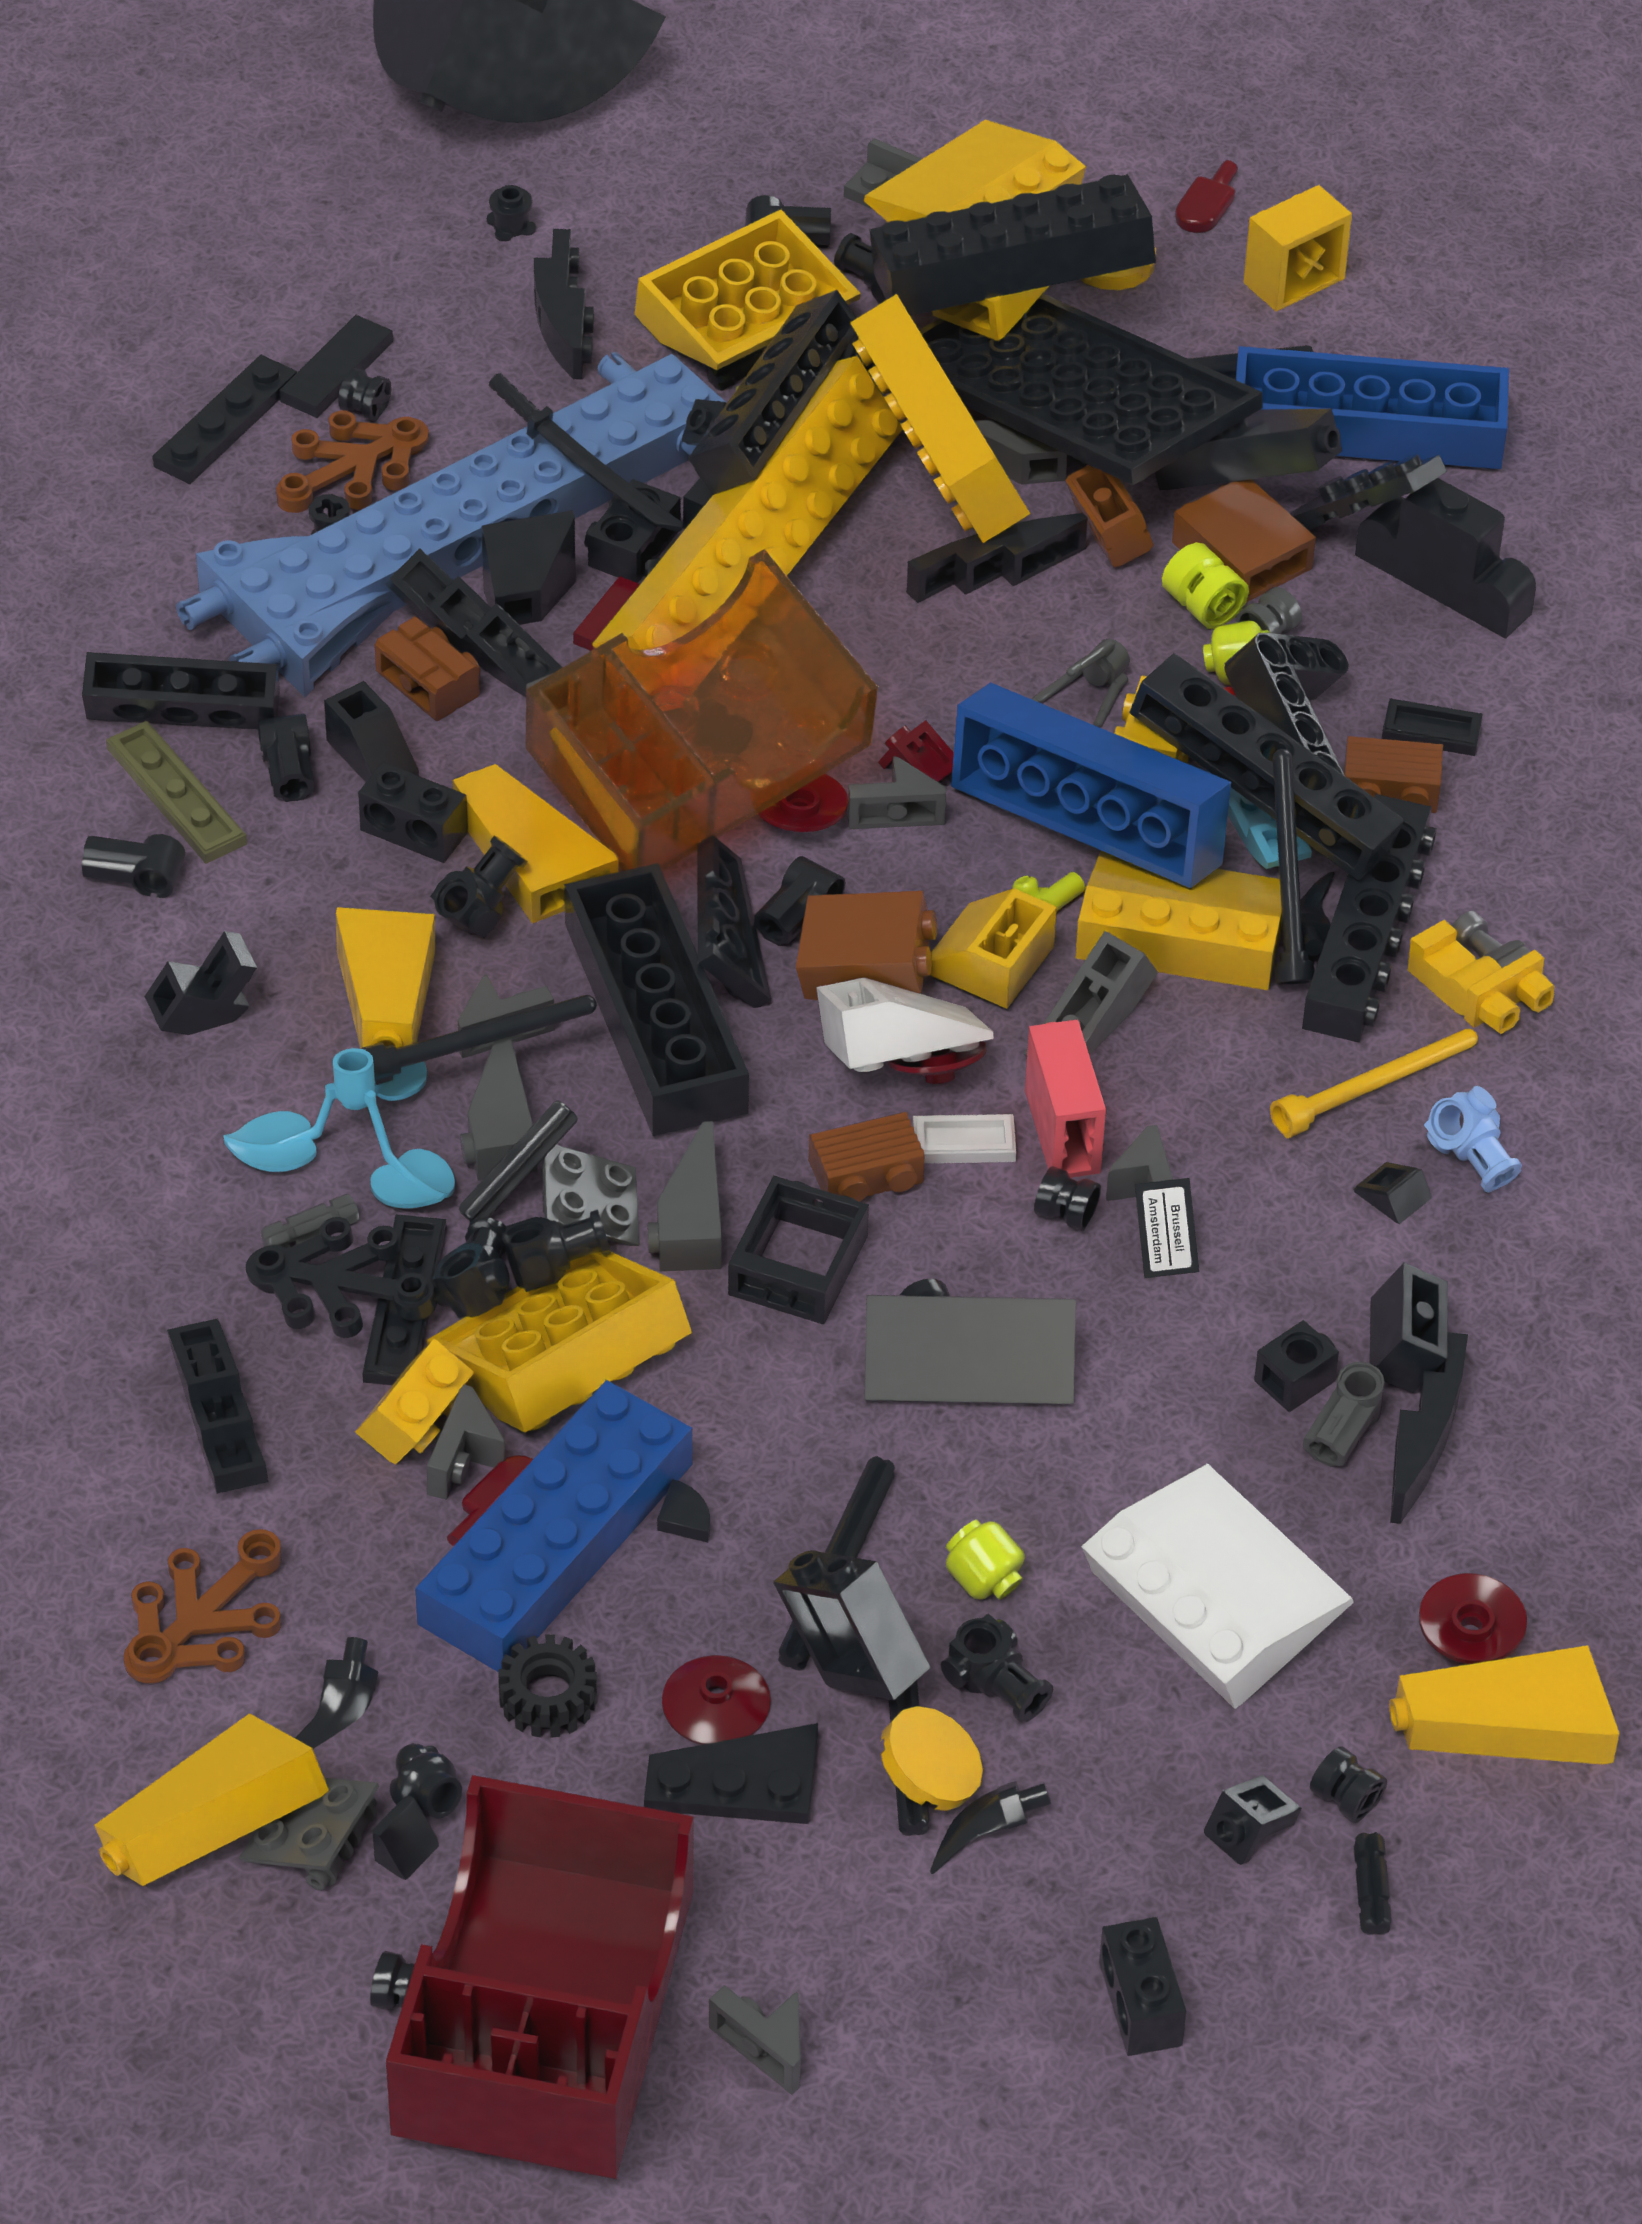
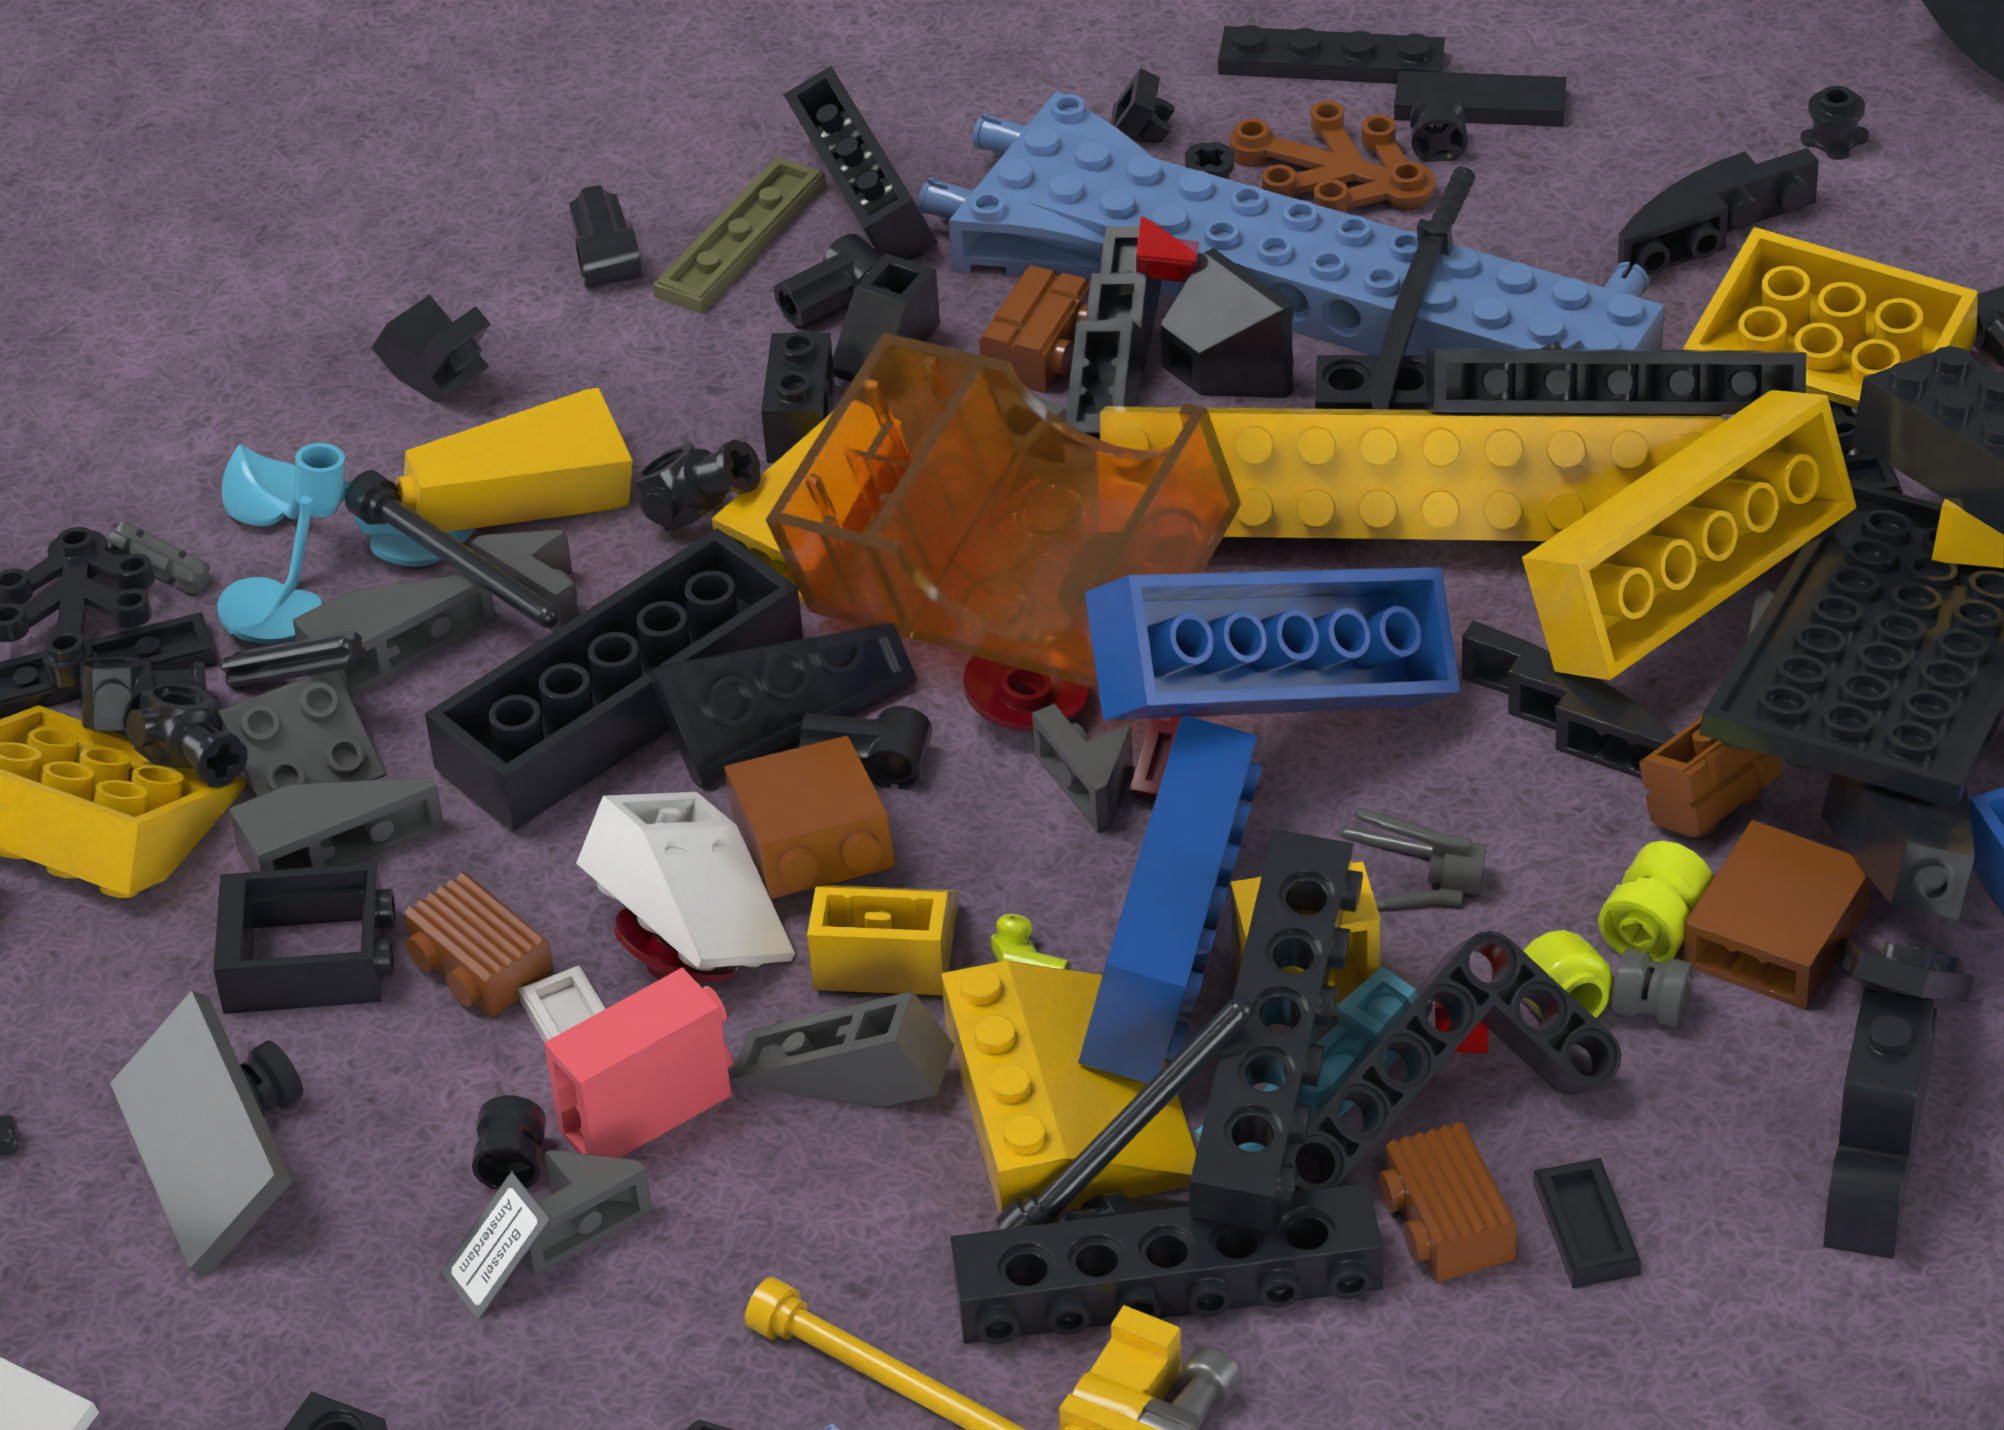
camera: 70 degrees right, 5 degrees down
(214, 526) = (1141, 111): none -> black tile
(452, 556) = (1163, 254): none -> red slope
(921, 640) = (1271, 642): none -> blue brick

